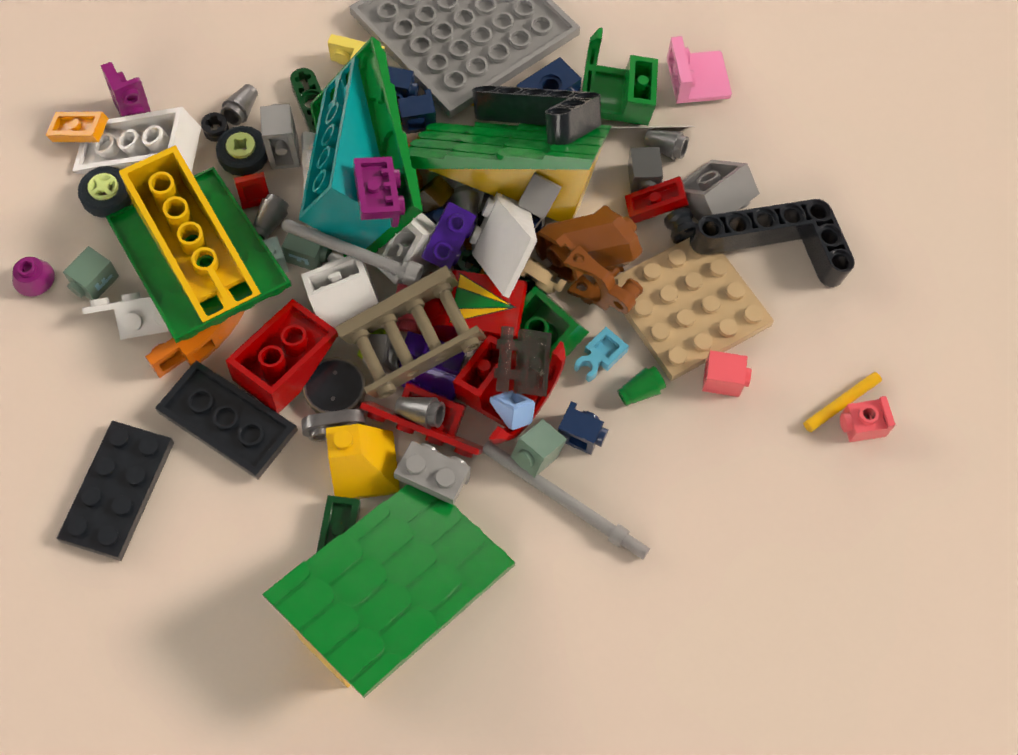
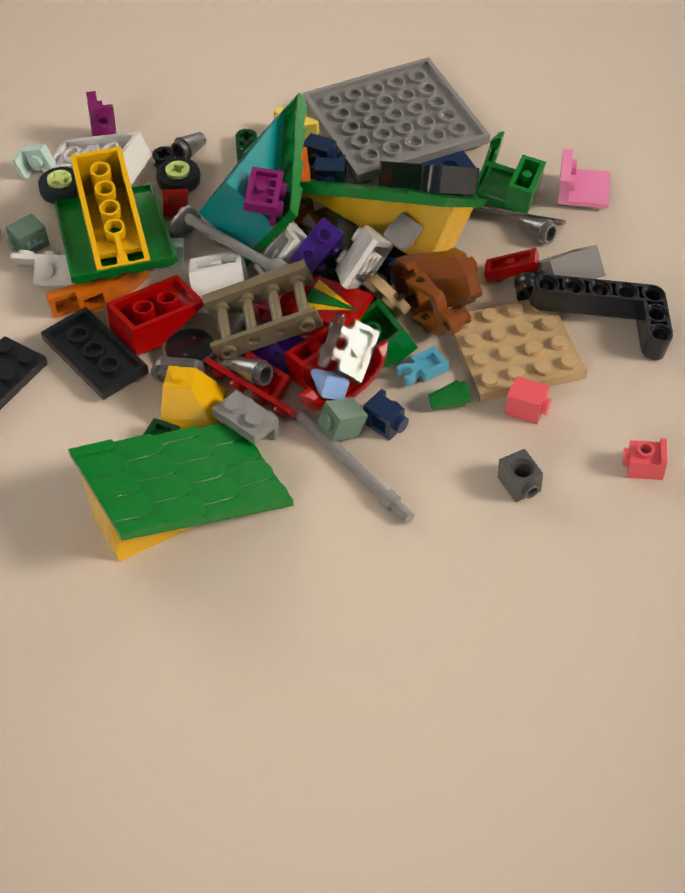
camera: 20 degrees right, 15 degrees down
(60, 161) = (33, 158): none -> light aqua bracket
(77, 126) = (57, 137): light orange plate -> none
(280, 136) = (209, 165): light grey brick -> none
(304, 252) = (199, 244): sand green brick -> none
(644, 168) = (510, 239): dark grey brick -> none
(750, 461) = (520, 475): none -> dark grey brick
(842, 401) = (617, 448): yellow bar -> none

